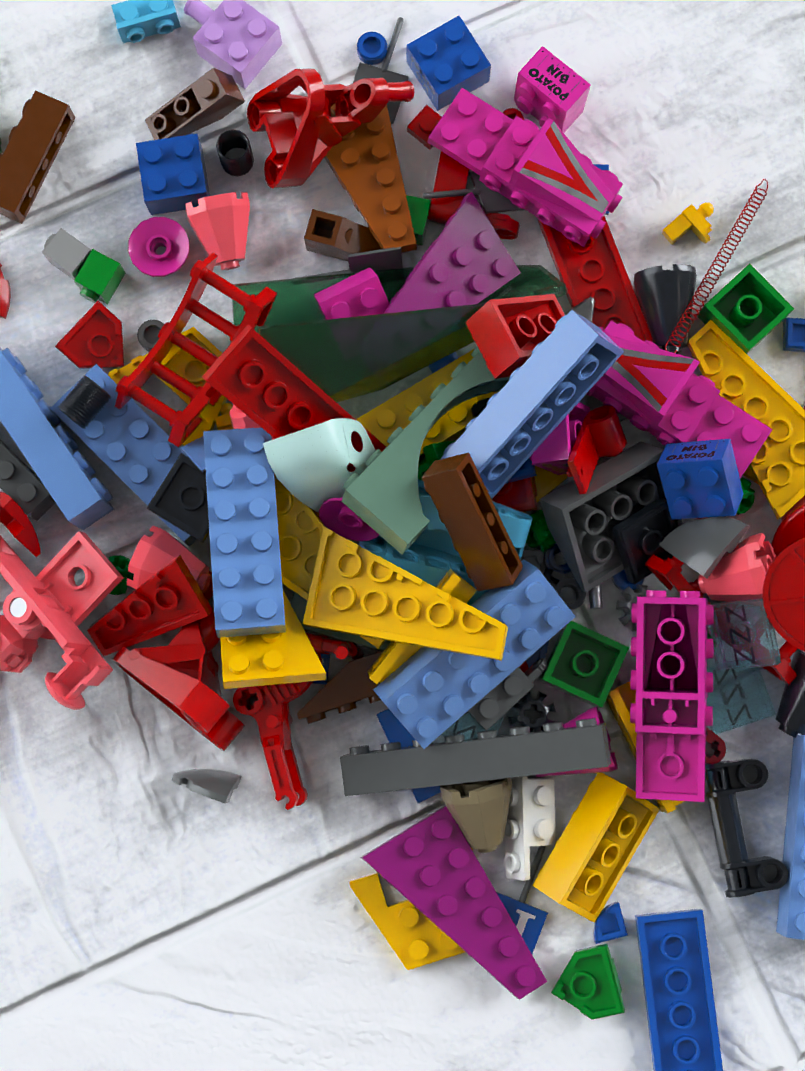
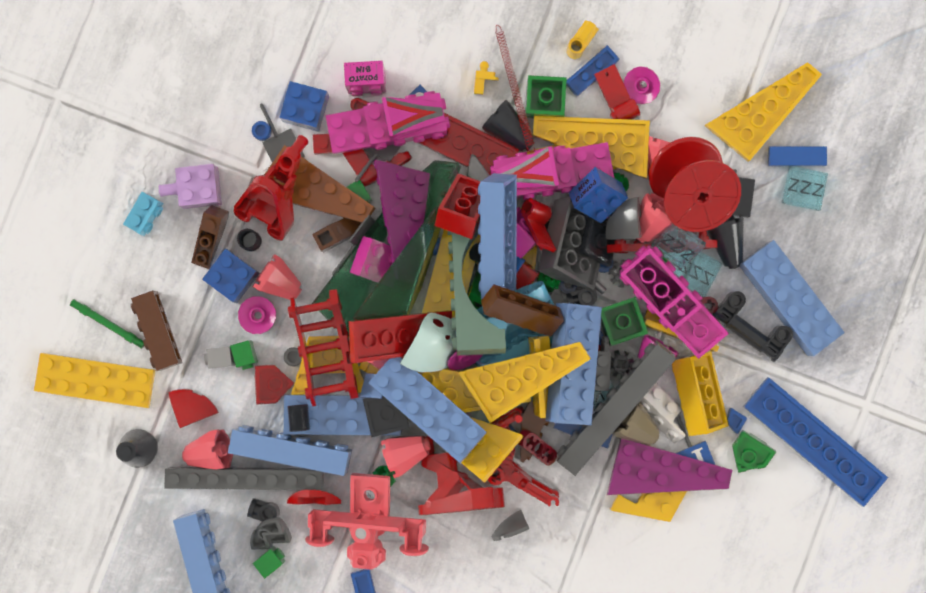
camera: 45 degrees left, 5 degrees up
(154, 608) = (416, 476): red wing -> none
(339, 724) = (544, 447): none -> dark red beam

